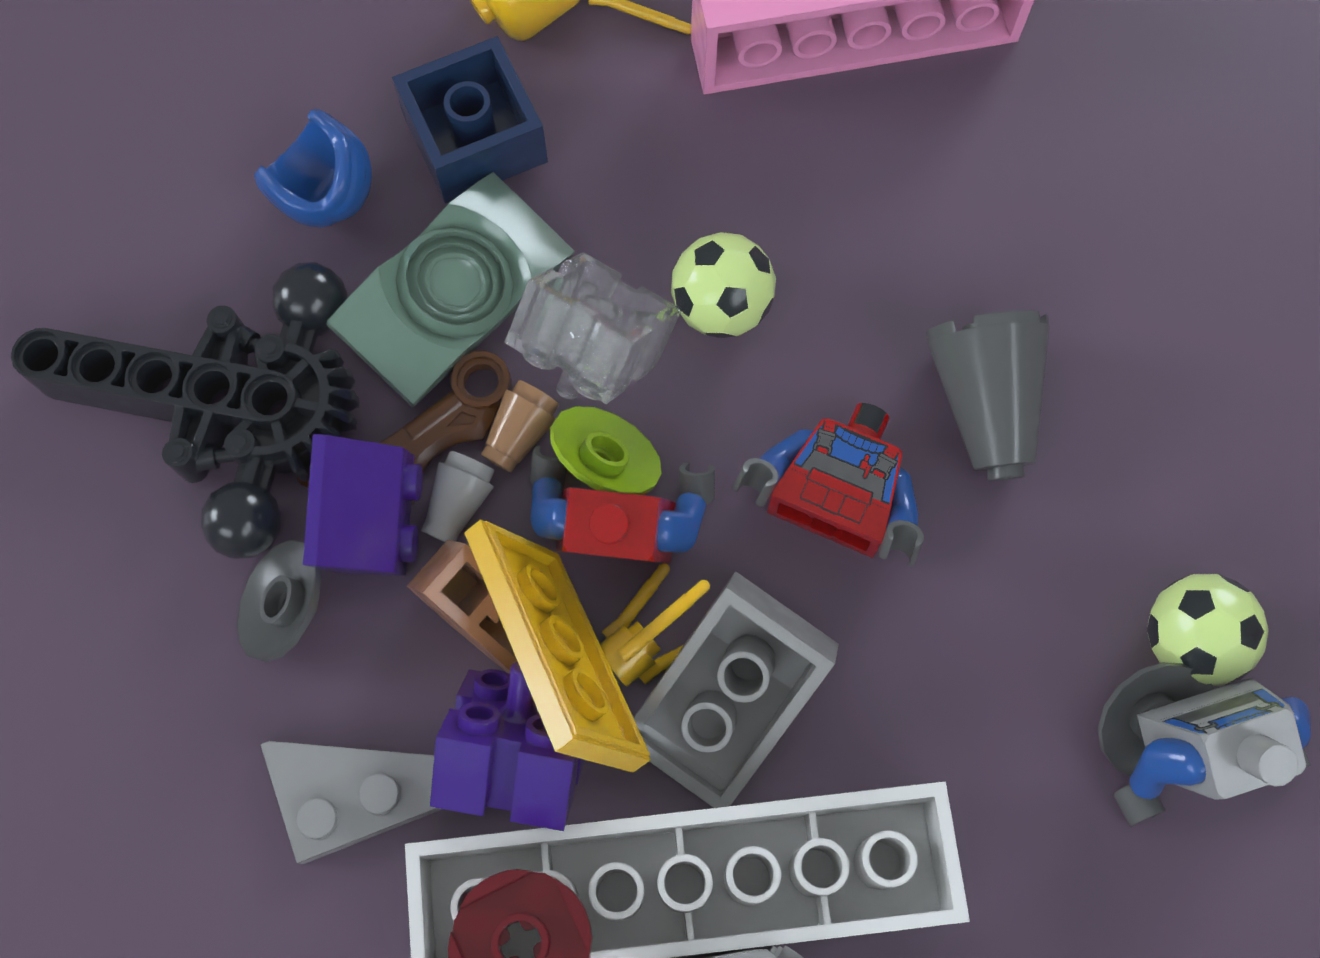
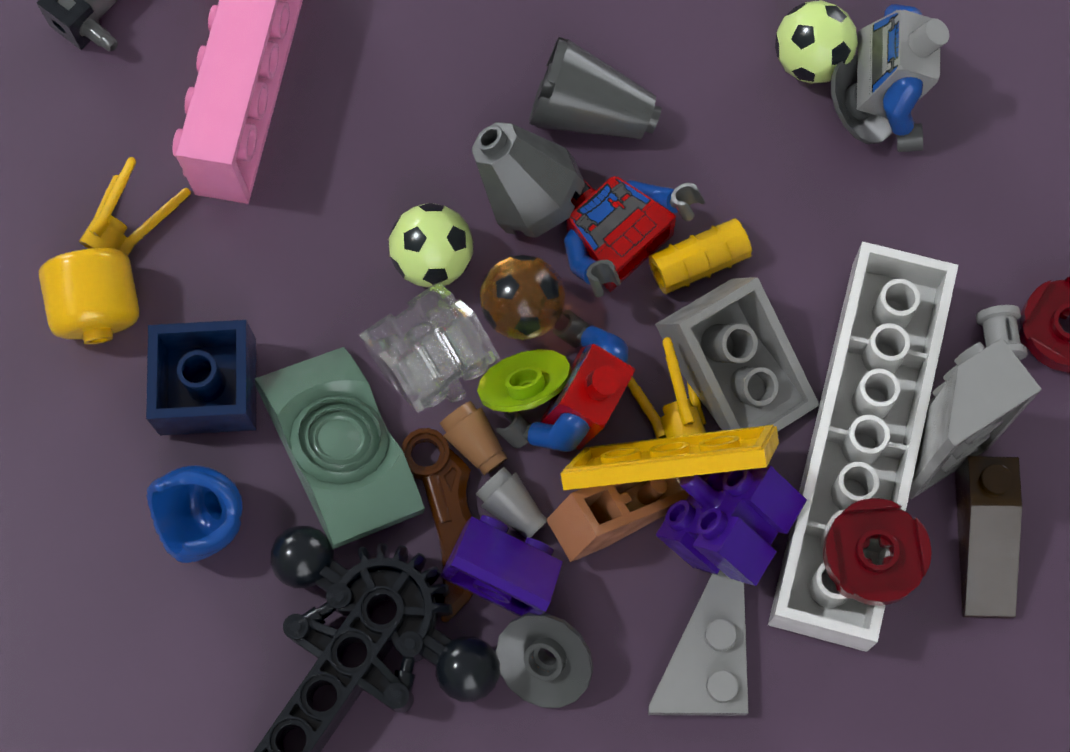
camera: 65 degrees left, 0 degrees up
(702, 407) = (522, 297): none -> clear orange piece
(848, 348) = (526, 178): none -> dark grey cone
(851, 595) = (700, 256): none -> yellow axle

